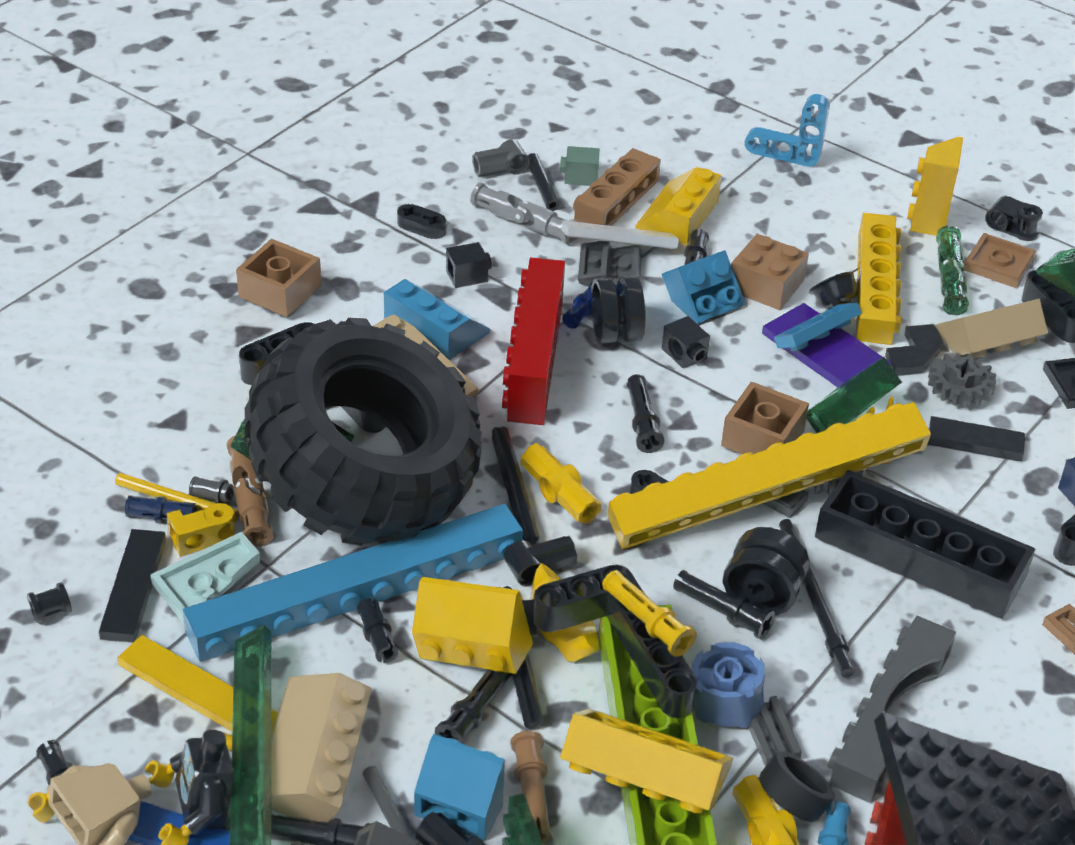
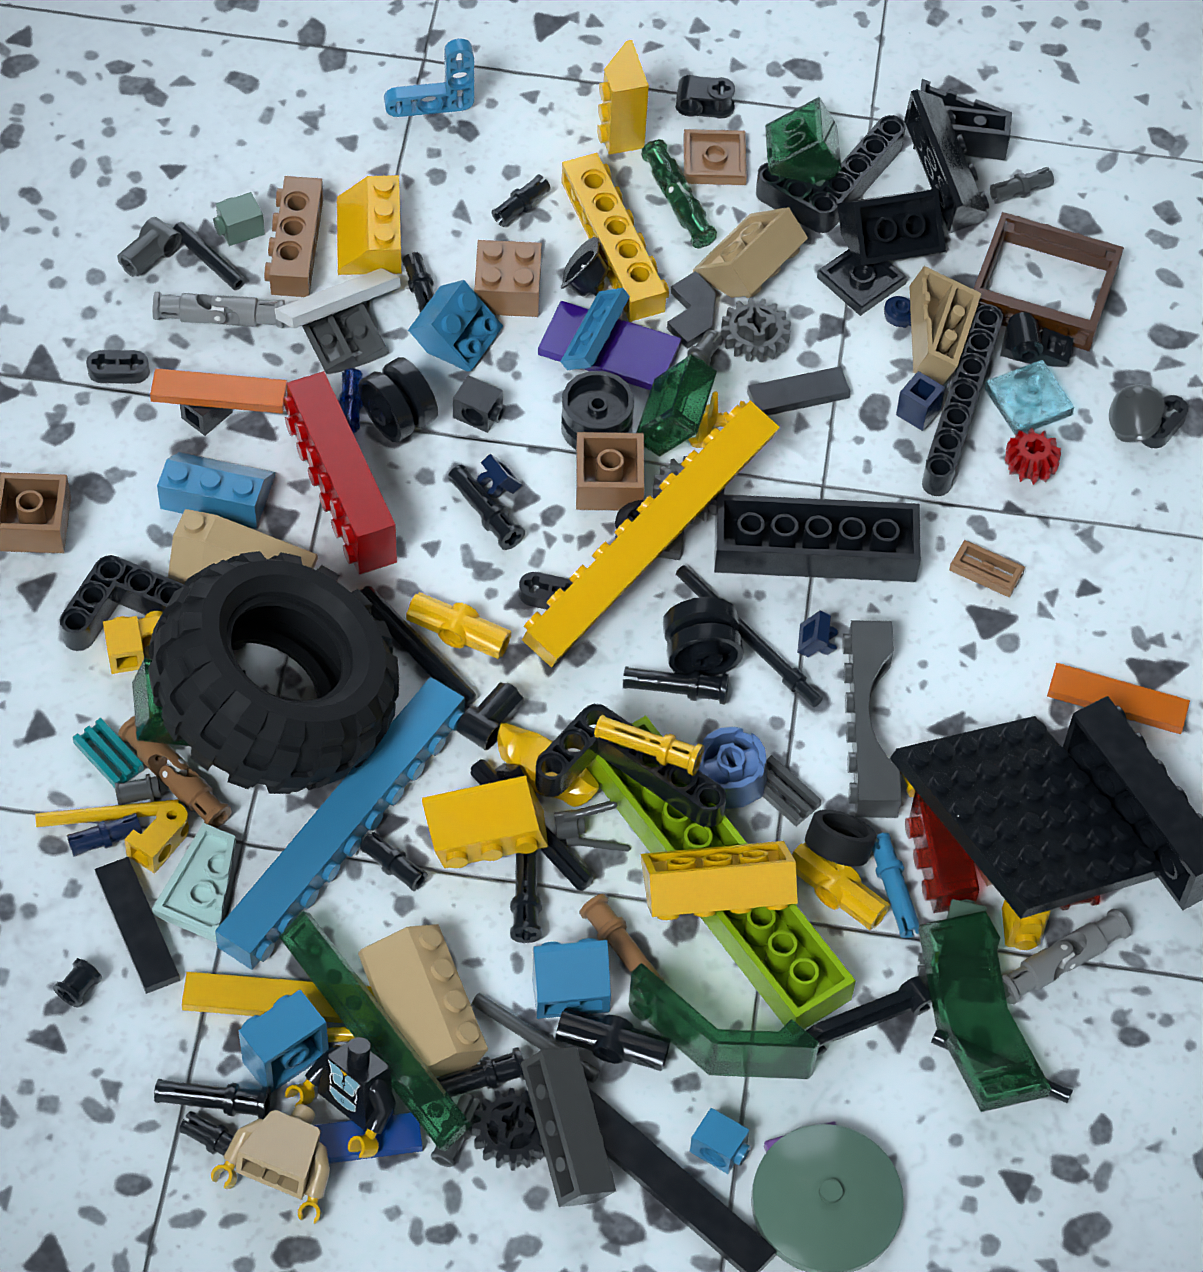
camera: 30 degrees left, 15 degrees up
(95, 747) = (229, 1099): none -> black pin
(166, 714) = (283, 1040): none -> dark azure brick
(209, 440) = (92, 734): none -> teal tile
(476, 251) = (218, 390): none -> orange tile
(554, 669) = (571, 824): none -> dark grey plant
(667, 396) = (500, 475): none -> dark blue tile
(785, 370) = (596, 404): none -> black wheel
(814, 230) = (520, 200): none -> black pin
(879, 619) = (815, 635): none -> dark blue tile
(910, 378) = (706, 347): none -> dark grey pin

